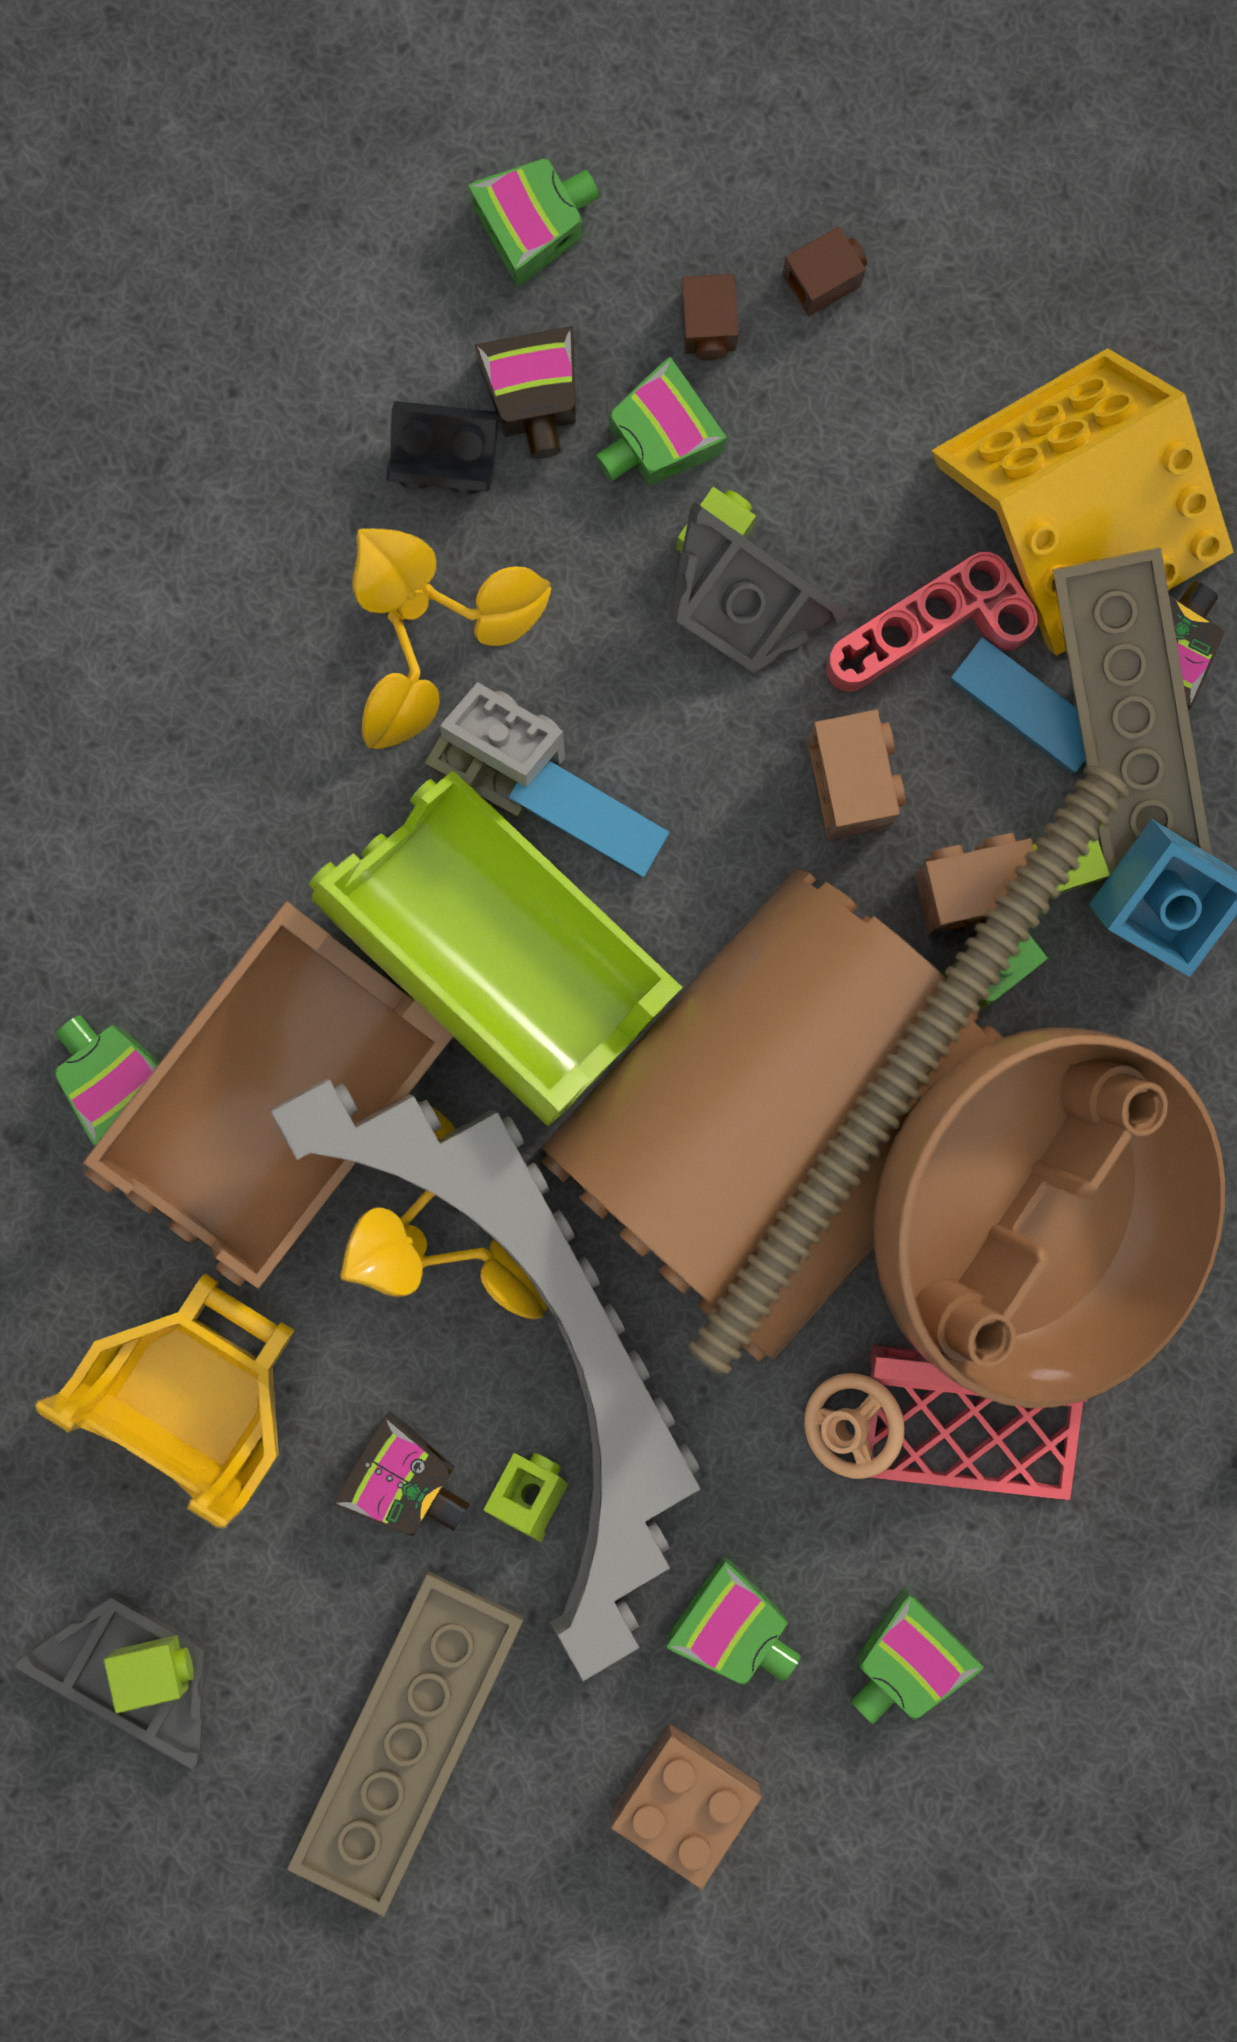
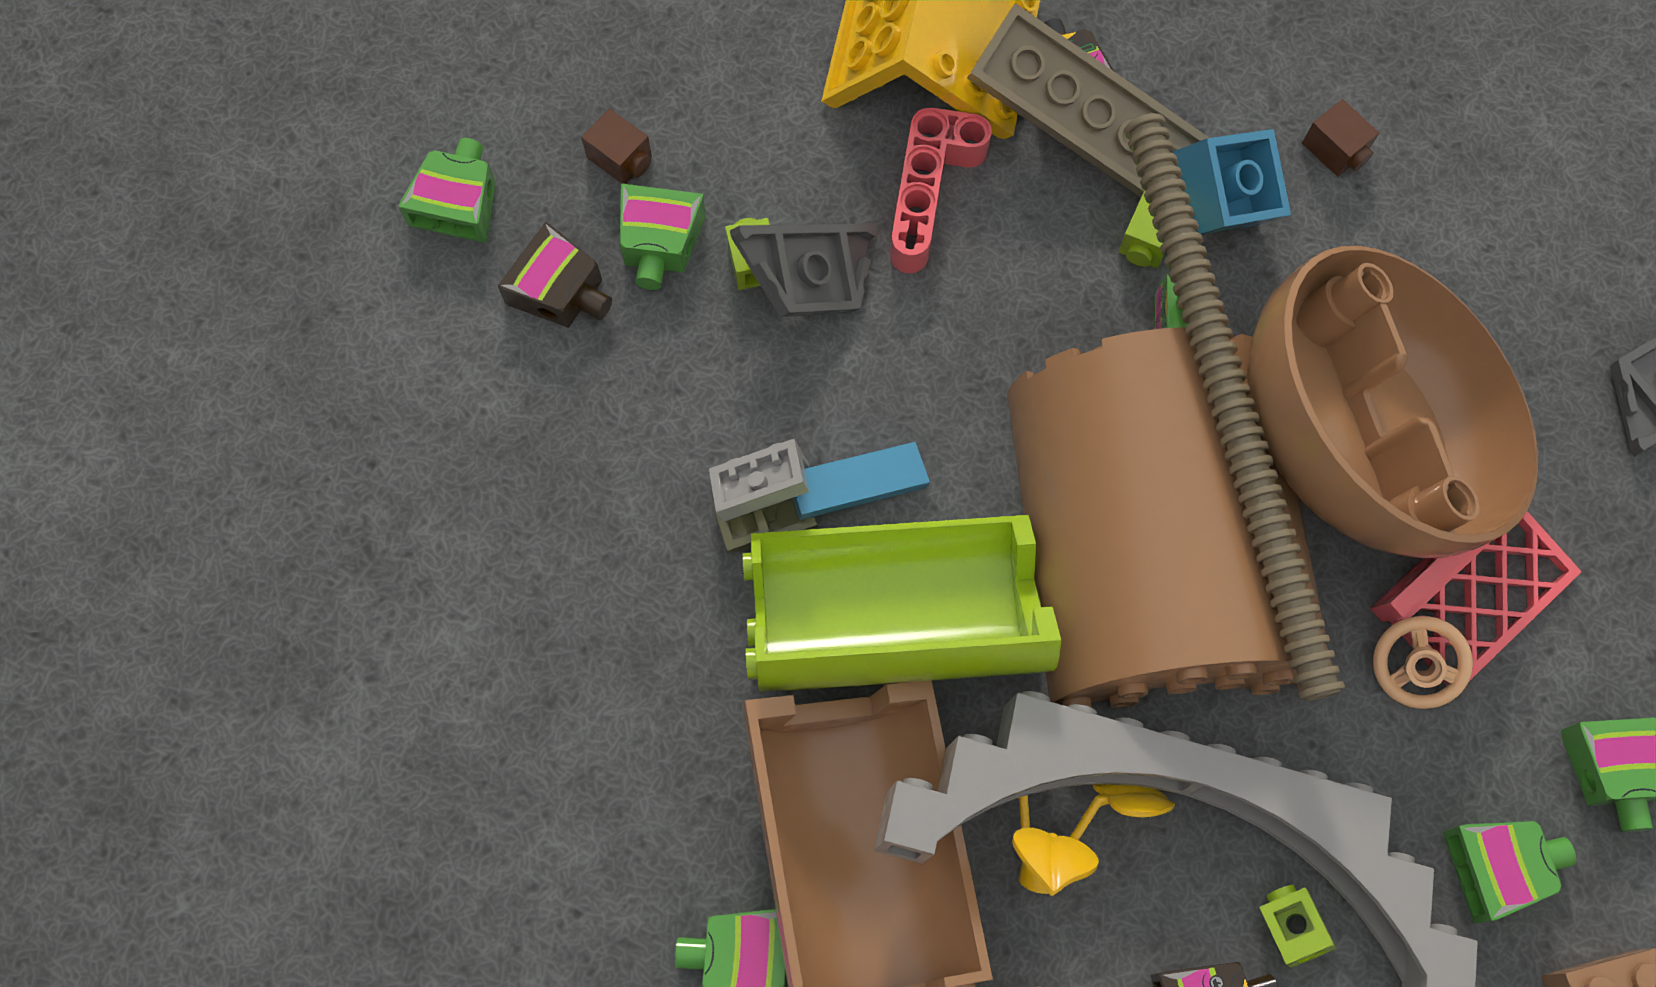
camera: 45 degrees left, 15 degrees down
(394, 578) = (591, 440): yellow plant -> none
(442, 447) = (538, 363): black bracket -> none
(825, 270) = (656, 66): reddish brown brick -> none
(855, 774) = (985, 296): medium nougat brick -> none
(962, 886) = (1121, 282): medium nougat brick -> none
(1022, 703) = (1027, 177): dark azure tile -> none

